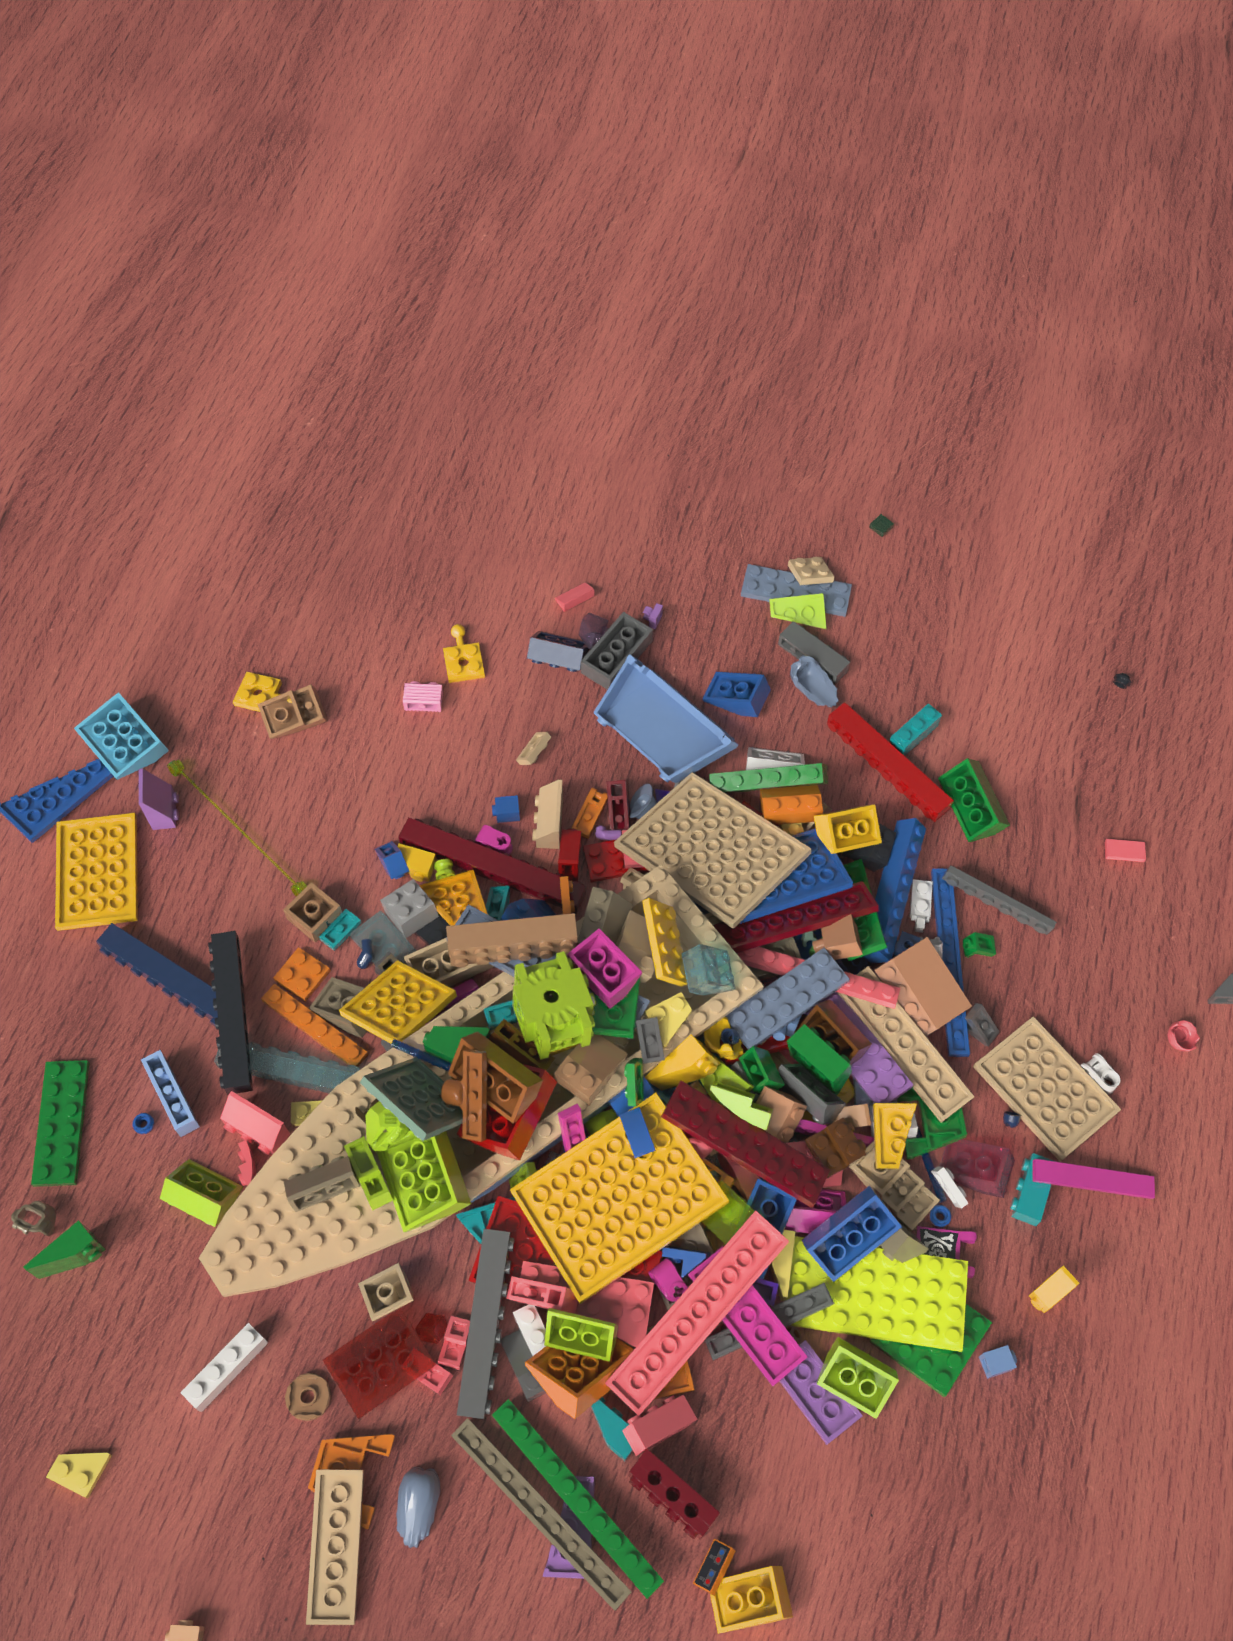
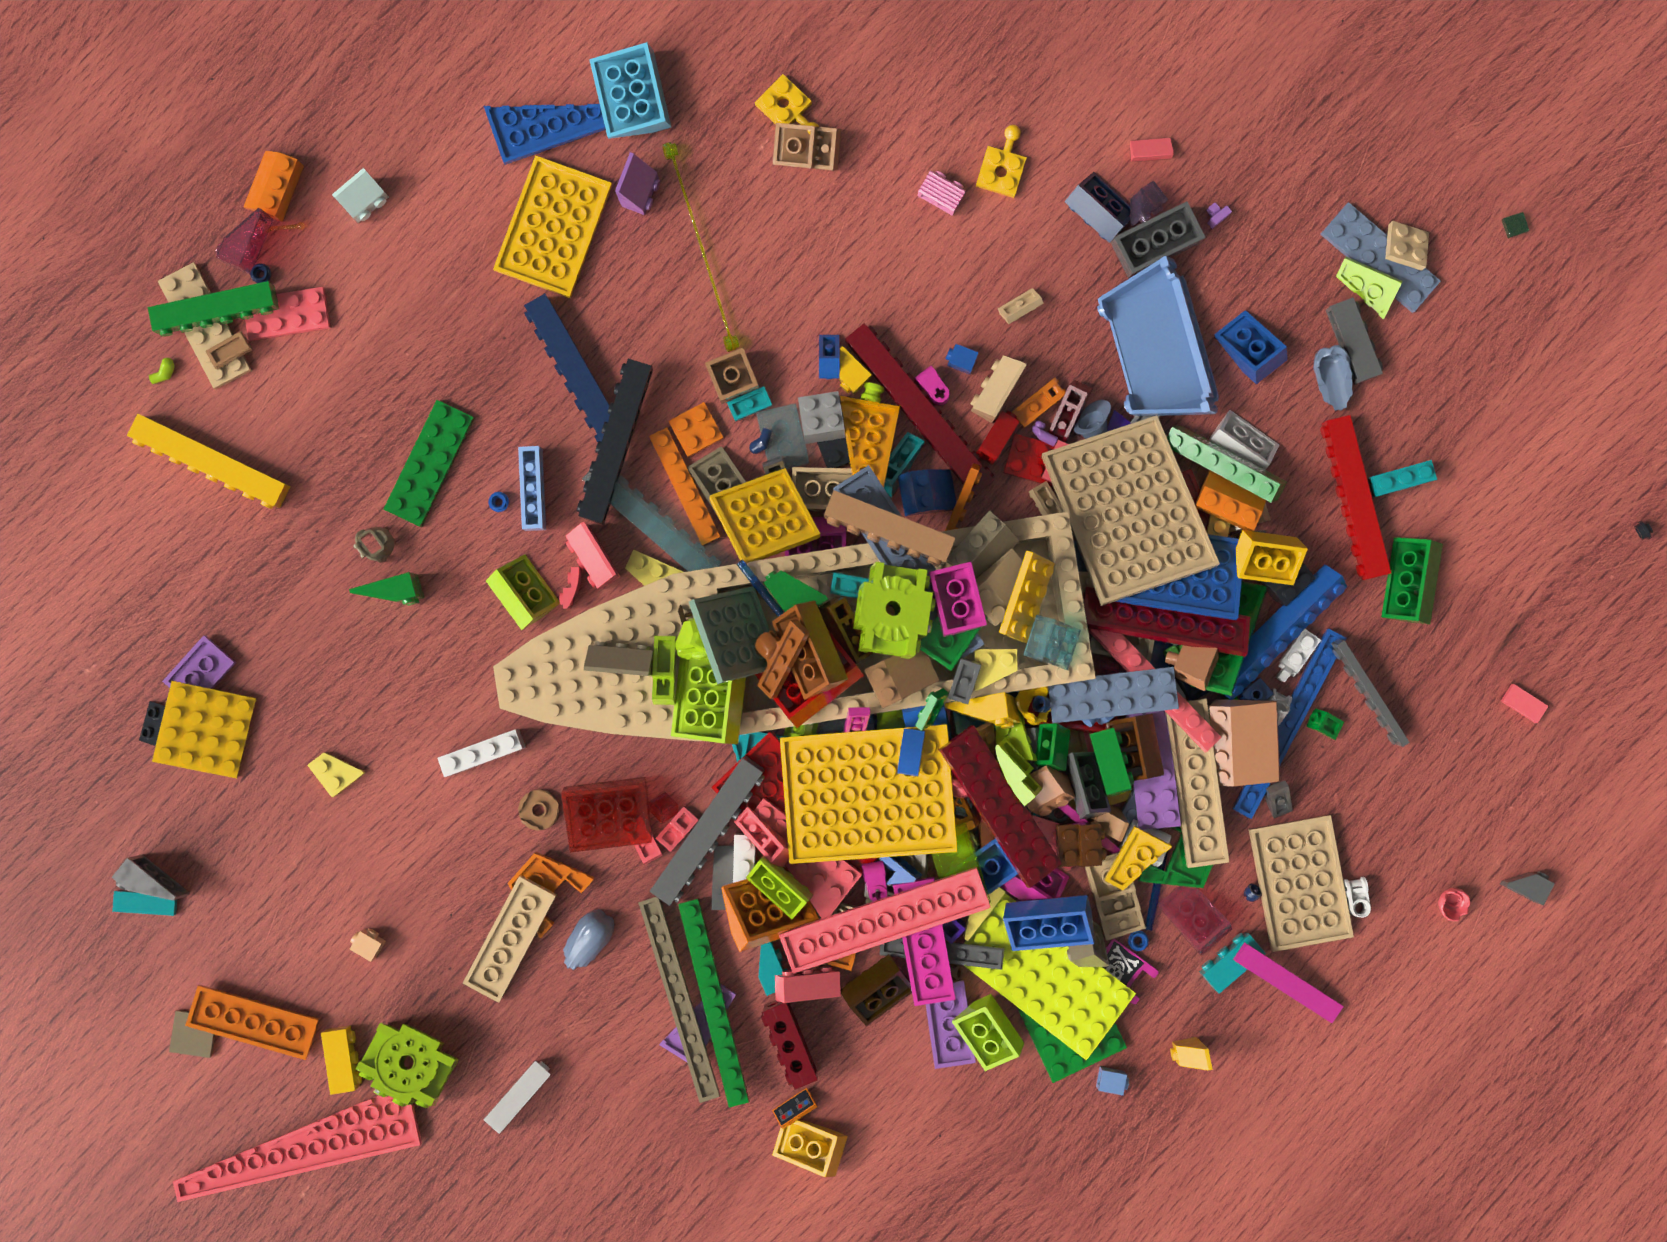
camera: 25 degrees right, 25 degrees up
(386, 1291) = (638, 764): tan slope -> none
(729, 1395) = (876, 990): none -> dark brown slope
(946, 1181) = (1162, 931): white plate -> none

